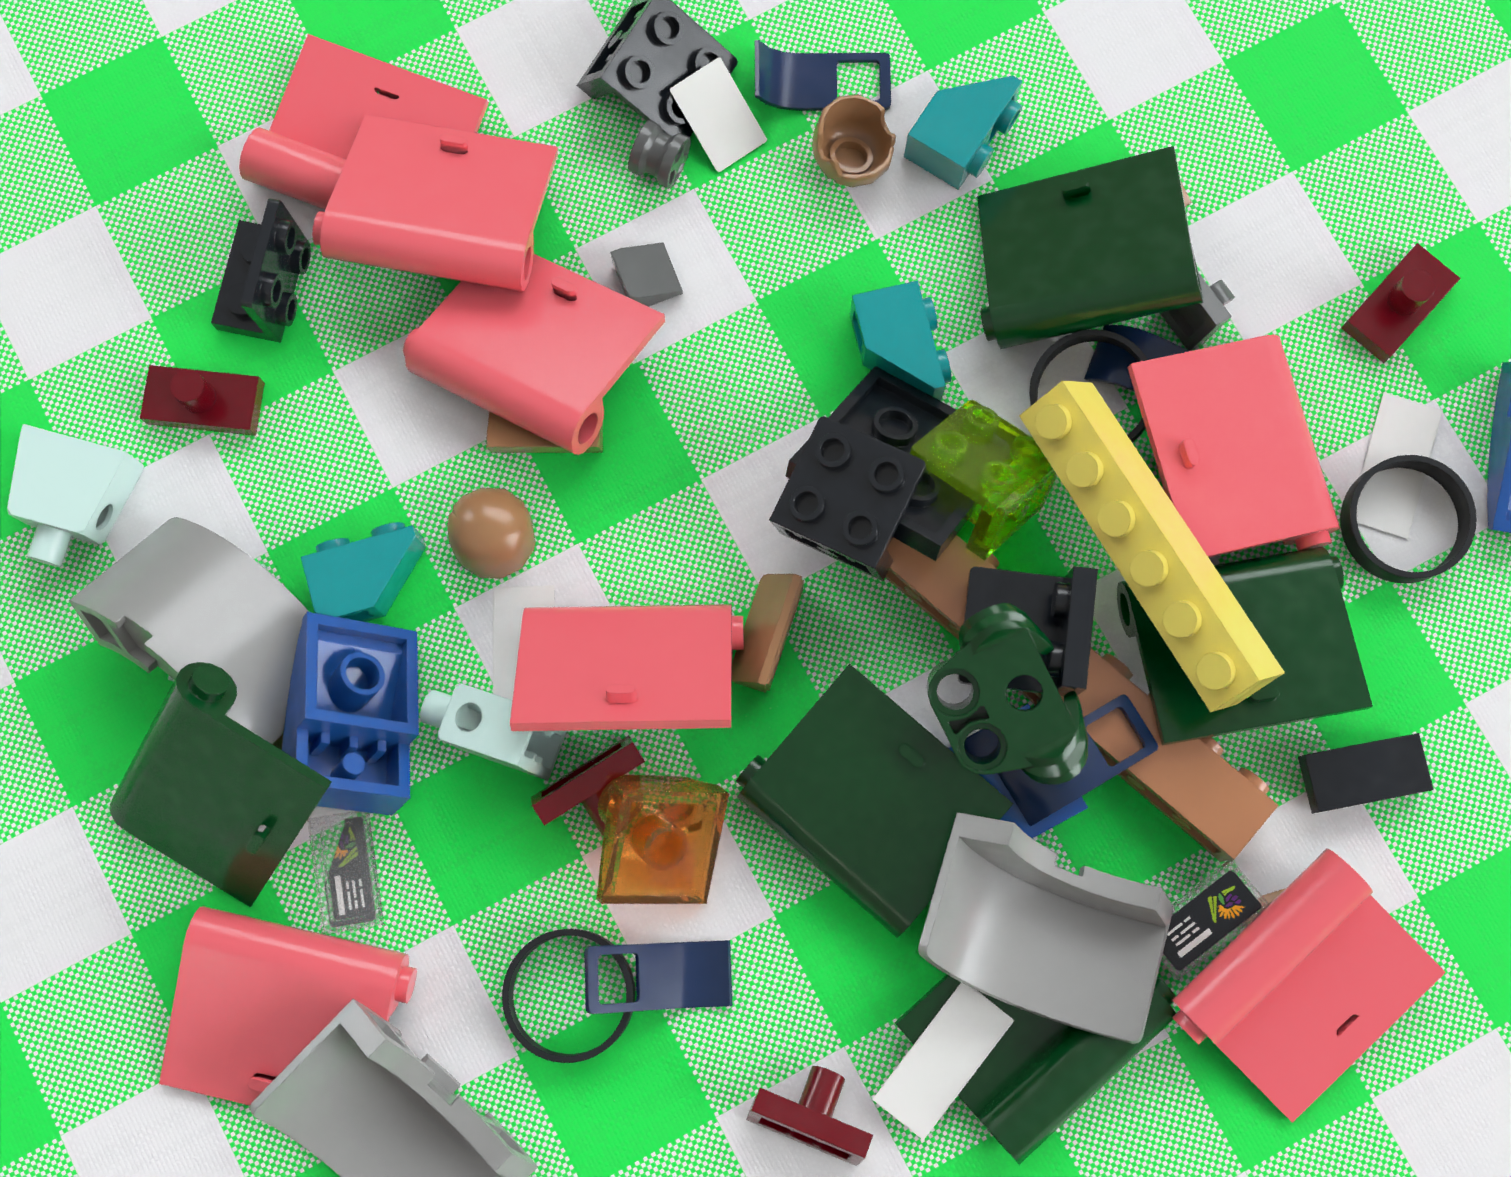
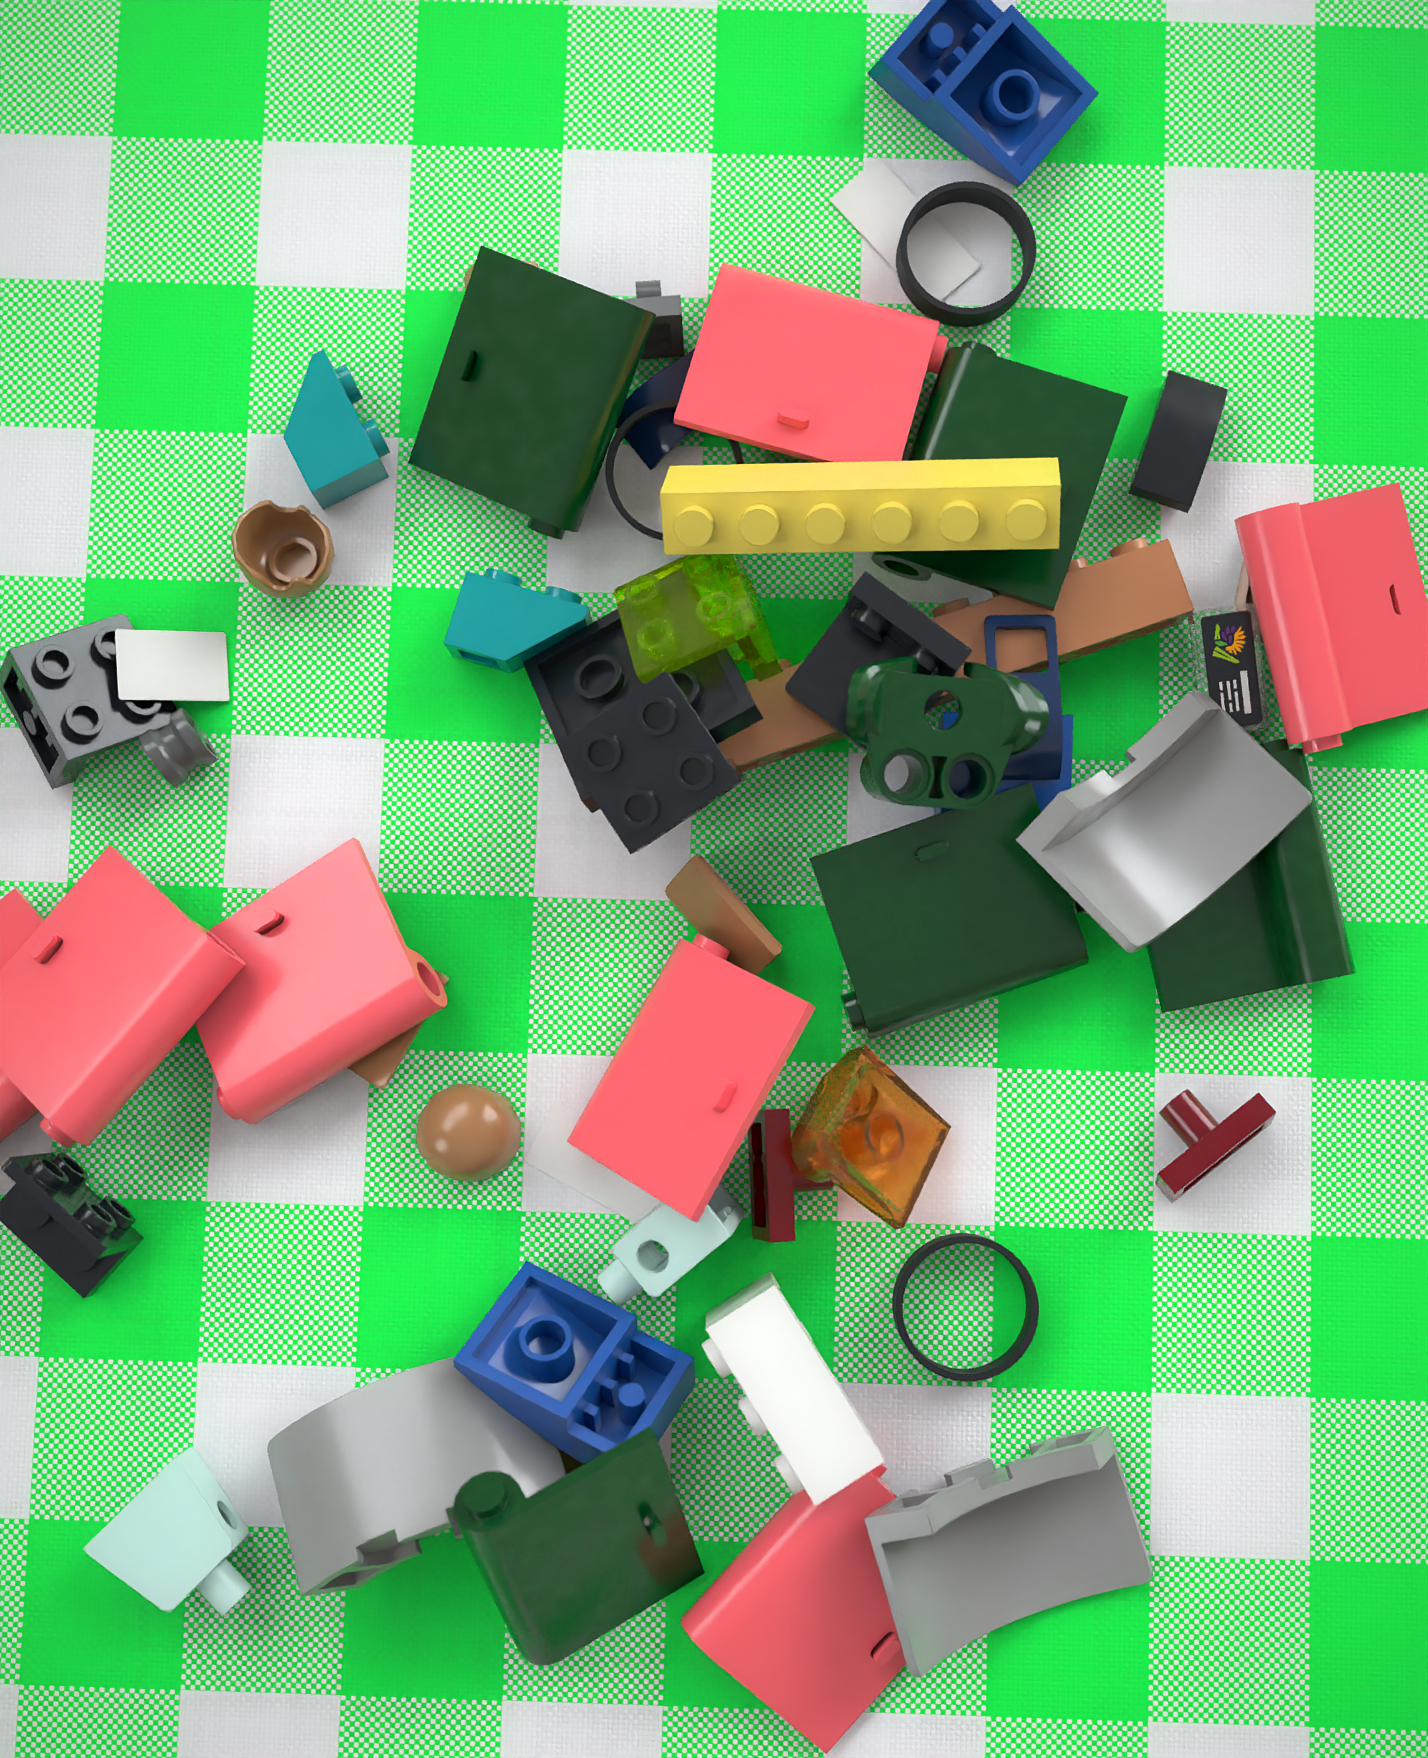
camera: 60 degrees left, 5 degrees up
(202, 400) = (159, 1350): dark red tile -> none
(345, 872) = (723, 1460): clear tile -> none
(362, 576) = (442, 1286): teal slope -> none
(422, 886) = (789, 1391): none -> white wedge
(646, 273) = (294, 831): dark grey slope -> none
(667, 976) = (1000, 1202): dark blue piece -> none
(809, 79) = (186, 554): dark blue piece -> none
(943, 1060) = (1222, 988): white sticker -> none
(1400, 303) = (754, 130): dark red tile -> none

